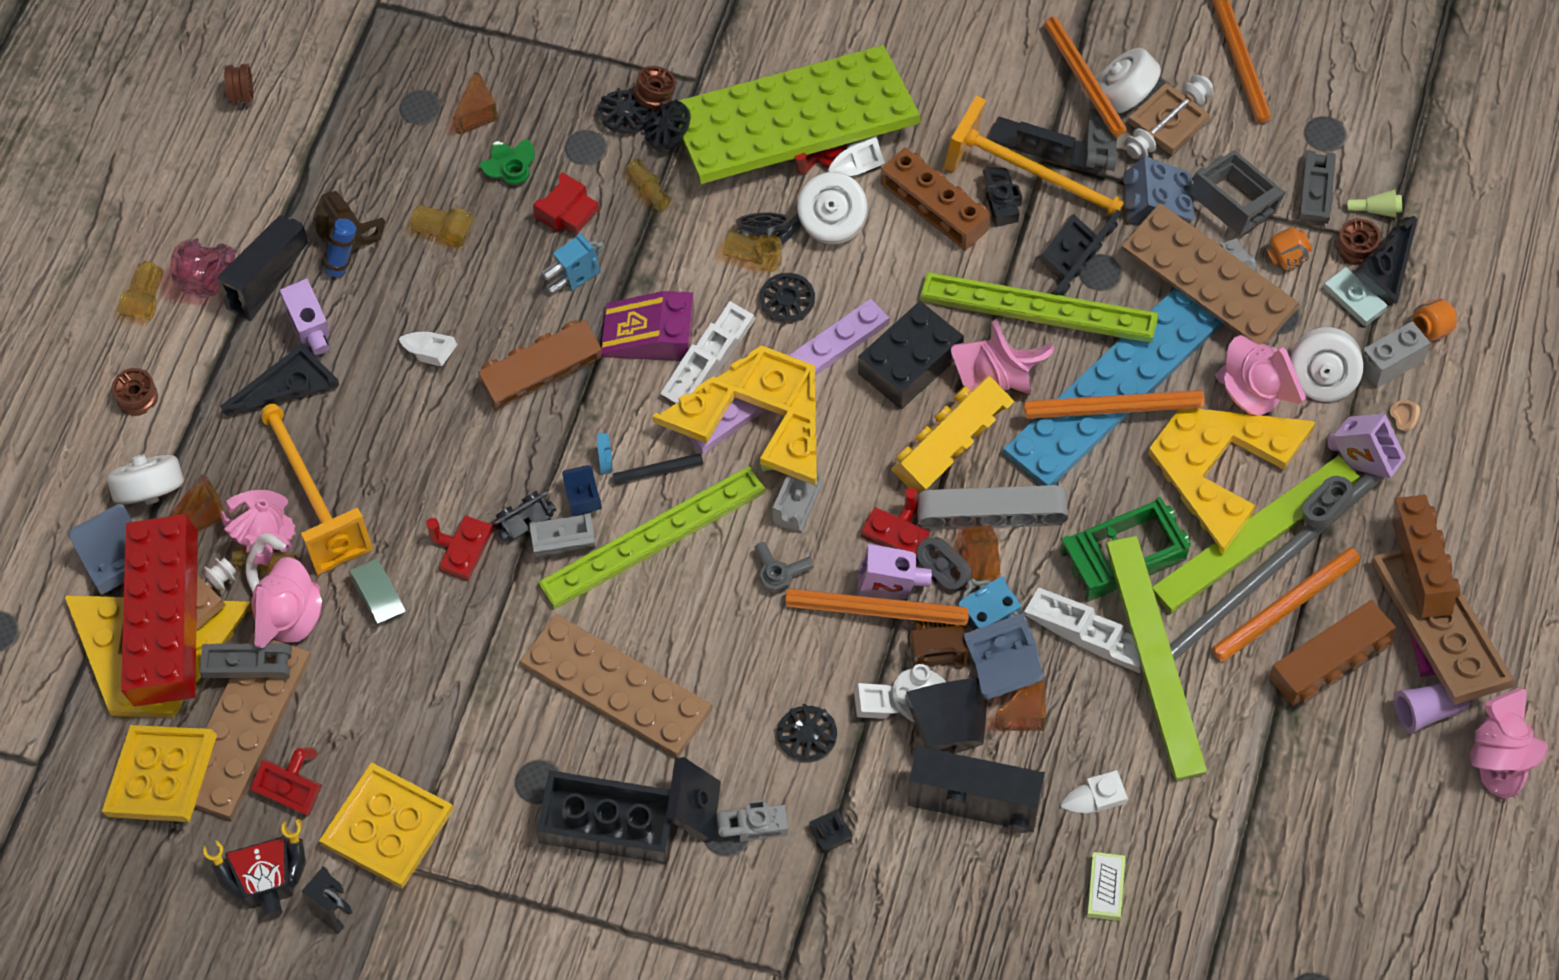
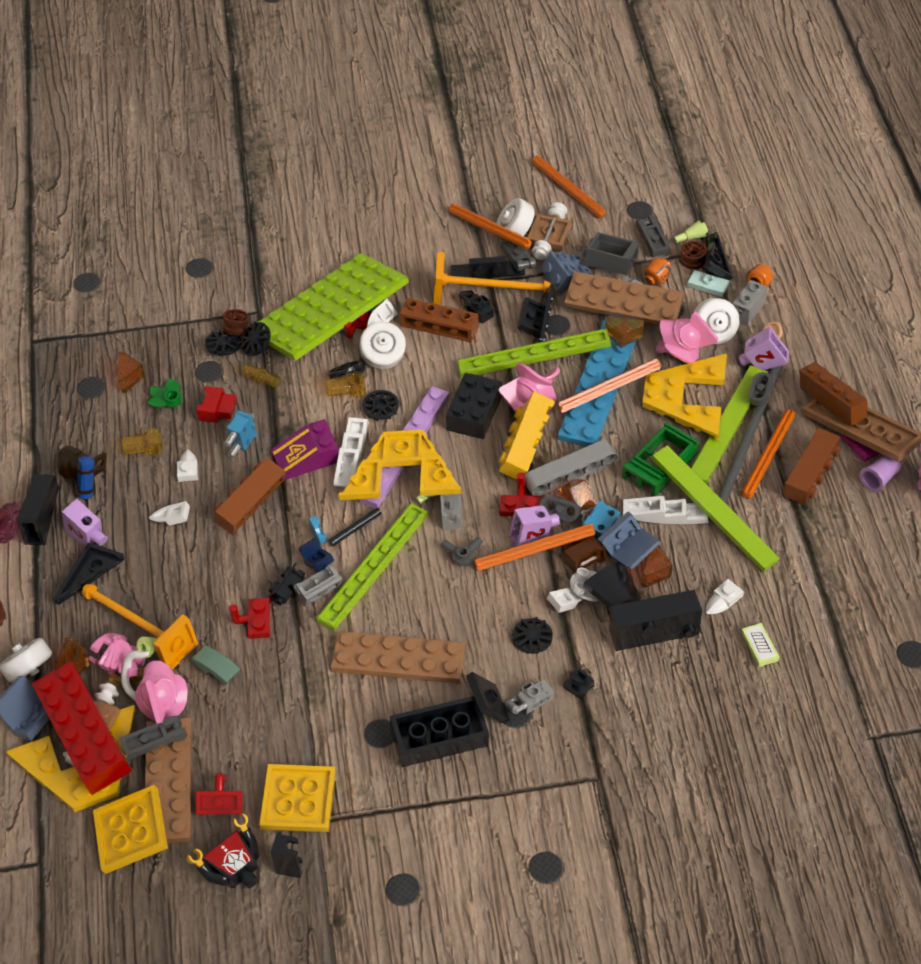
camera: 25 degrees left, 10 degrees down
(296, 525) = (146, 644): none -> yellowish green cone
(485, 283) = (187, 467): none -> white plate
(1182, 327) = (624, 330): none -> clear orange slope

